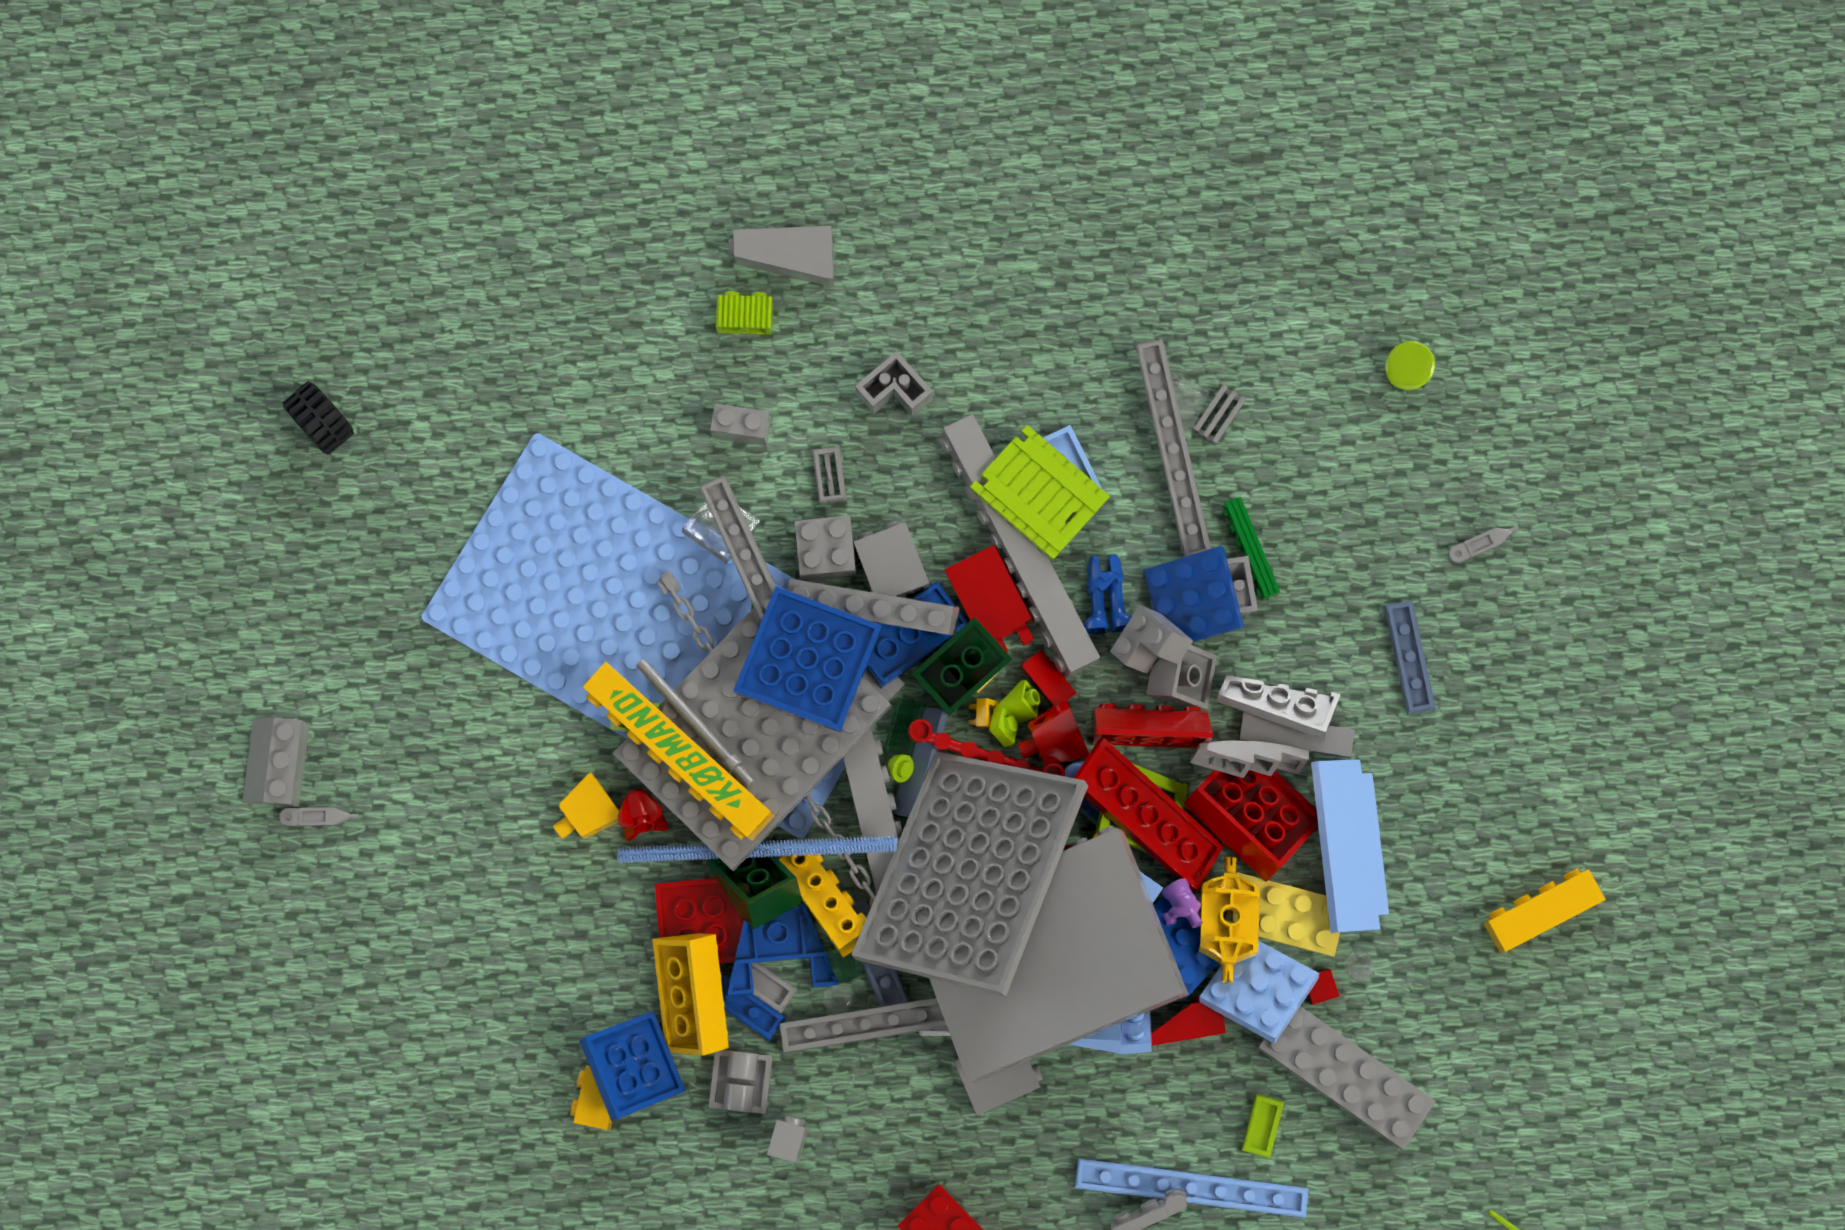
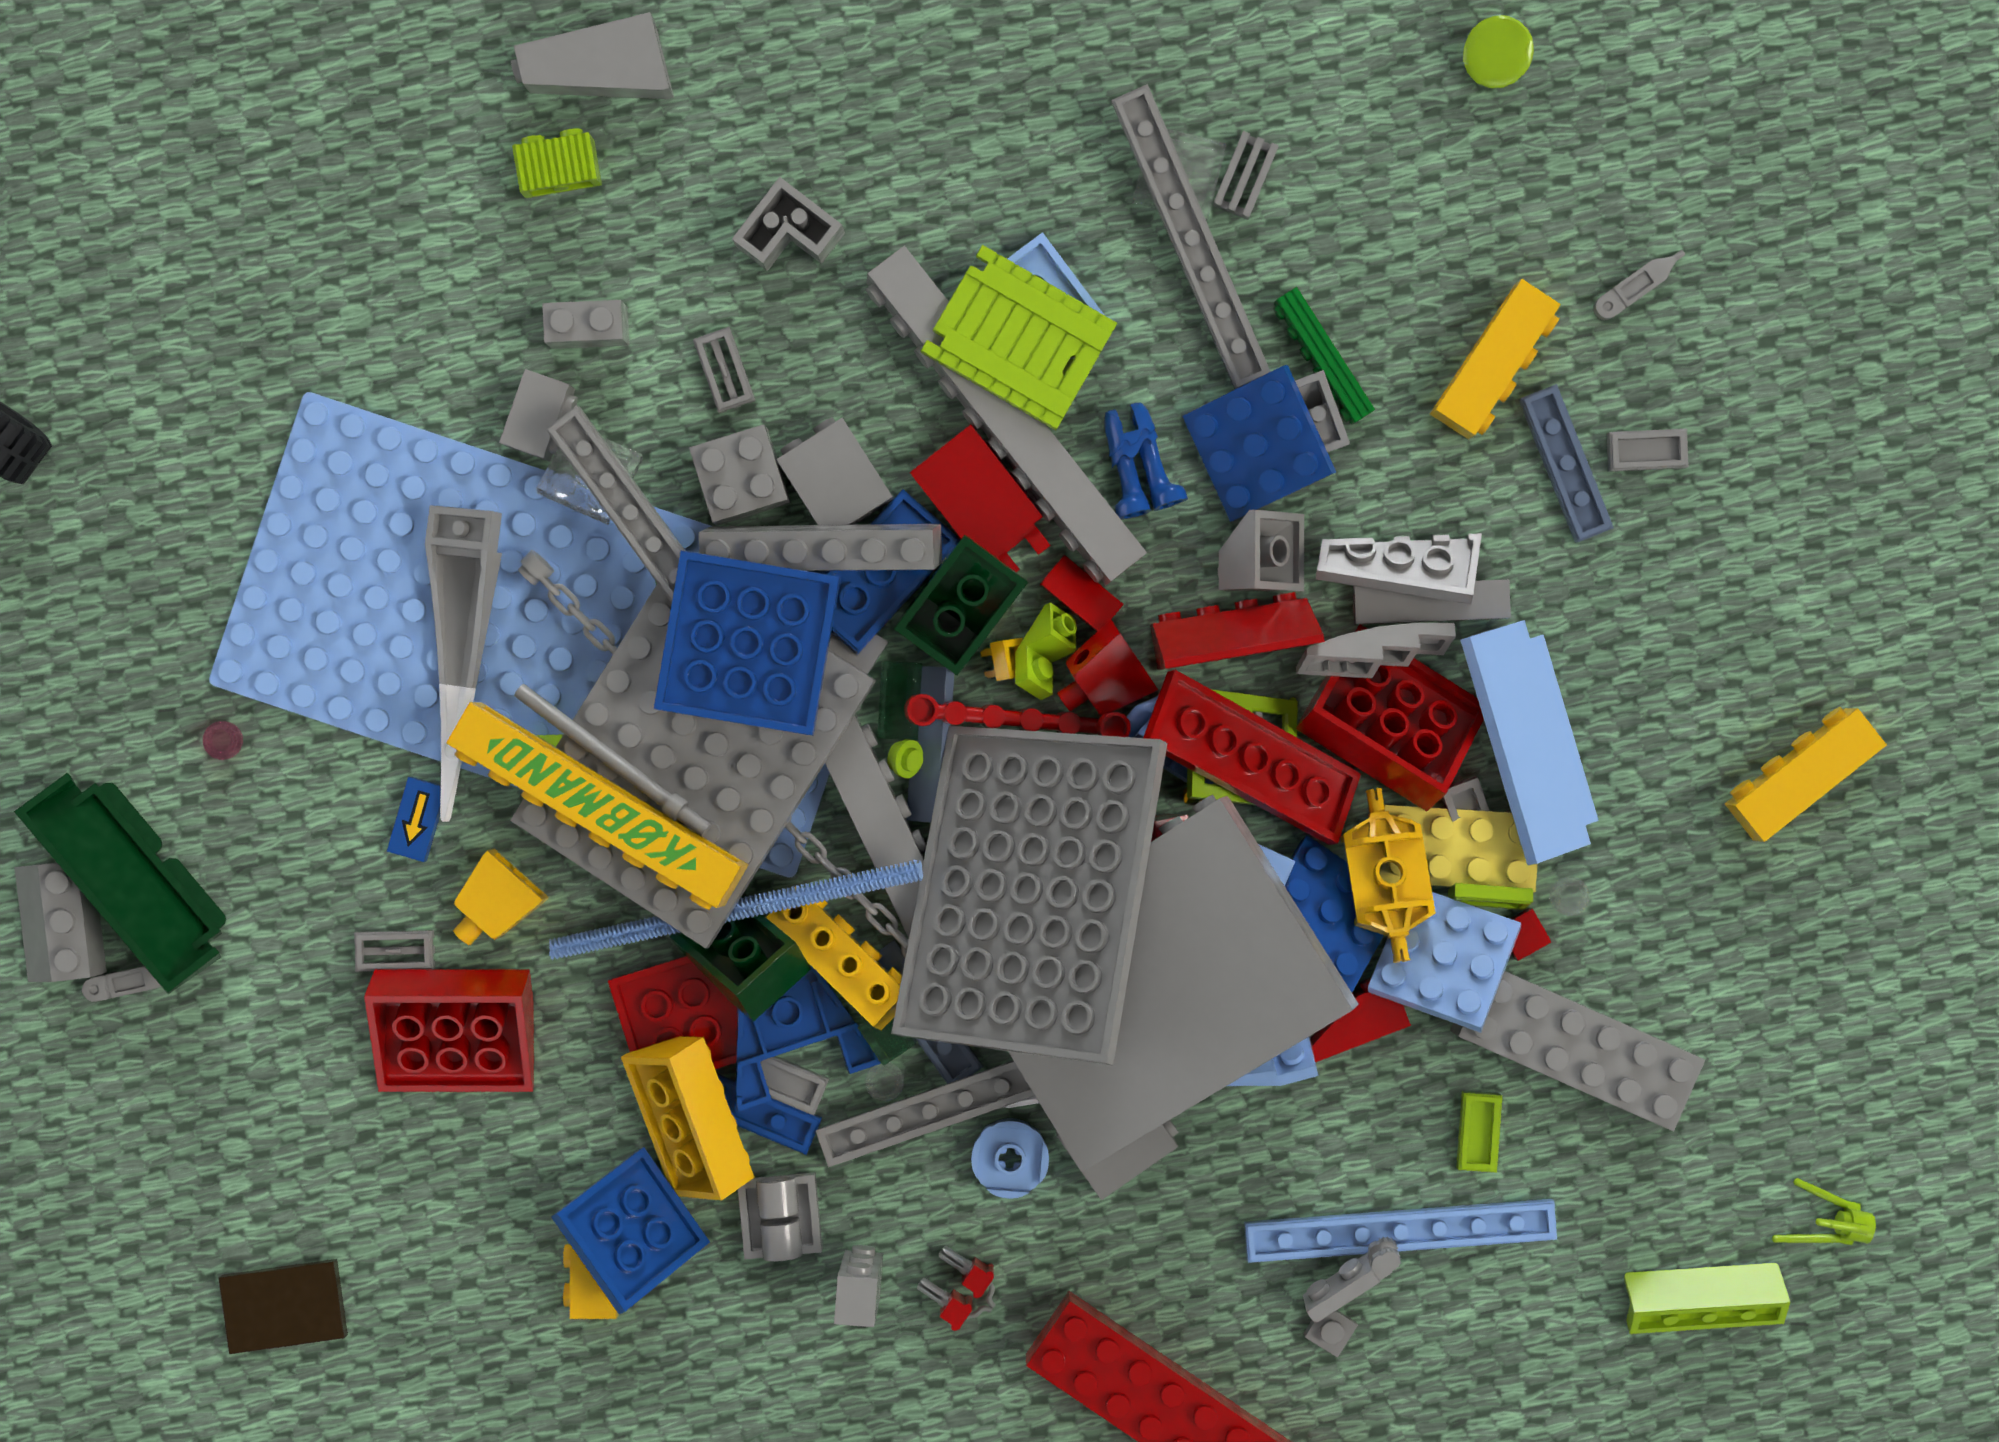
camera: 10 degrees left, 10 degrees up
(329, 735) = (115, 865): none -> dark green slope
(366, 1074) = (283, 1306): none -> dark brown tile
(421, 660) = (222, 740): none -> clear pink plate
(530, 837) = (428, 950): none -> light grey tile
(535, 898) = (452, 1030): none -> red slope
(544, 743) = (416, 820): none -> blue tile
(616, 581) = (463, 581): none -> light grey plate
(640, 814) = (567, 891): red brick -> none
(693, 472) = (534, 408): none -> light grey brick
(873, 1155) = (975, 1277): none -> piece
(930, 1064) = (1024, 1175): none -> light blue plate
(1150, 637) = (1208, 512): light grey brick -> none
(1183, 903) = (1324, 867): medium lavender piece -> none
(1295, 877) = (1466, 796): none -> light grey plate
(1302, 952) = (1491, 896): none -> lime tile
(1371, 574) = (1496, 359): none -> yellow brick
(1469, 659) = (1647, 450): none -> light grey tile

